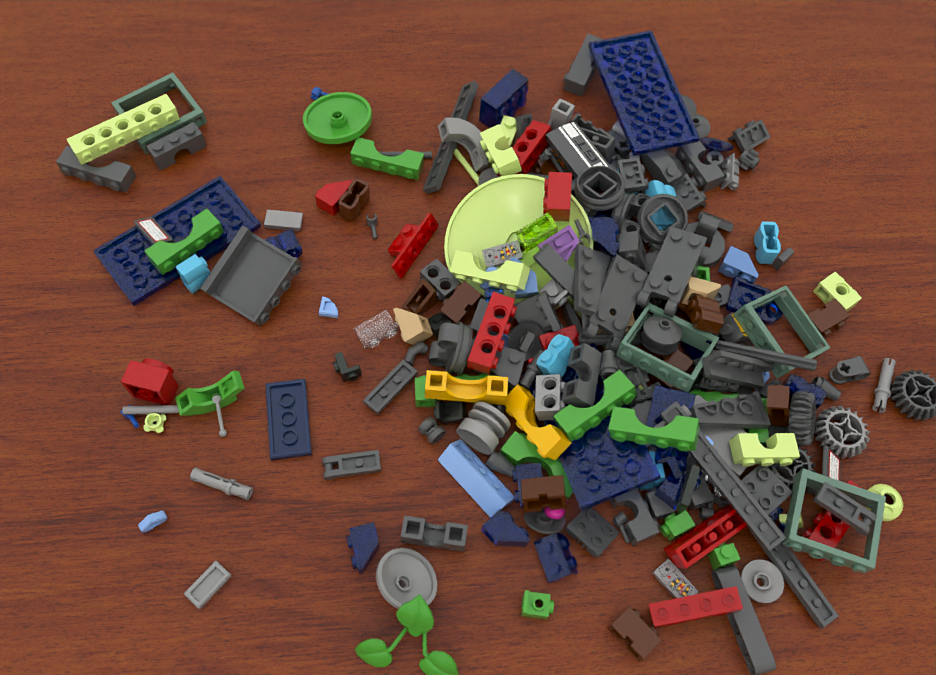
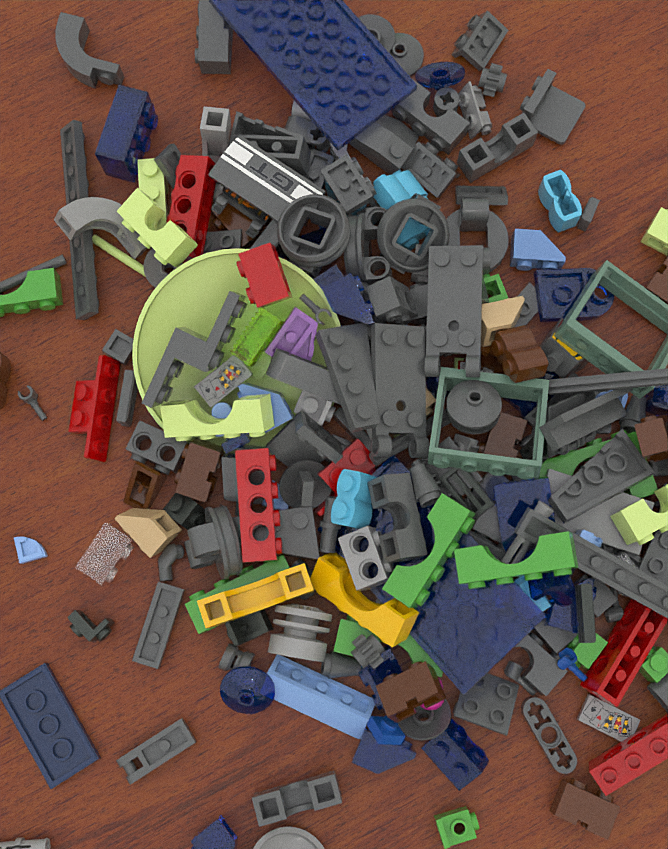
camera: 15 degrees left, 15 degrees up
(434, 246) = (127, 399): none -> dark grey tile
(437, 444) = (249, 682): none -> clear blue dish
(442, 215) = (119, 347): none -> dark grey plate
(493, 40) = (71, 39): none -> dark grey arch
(494, 223) = (194, 350): none -> dark grey bracket
(515, 514) = (385, 730): none -> blue plate
(525, 455) = (367, 651): none -> dark grey gear
(636, 589) = (566, 749): none -> dark grey beam
(660, 524) = (568, 660): none -> blue hand
(750, 197) = (483, 156): none -> dark grey arch
(780, 190) = (551, 109): none -> dark grey bracket

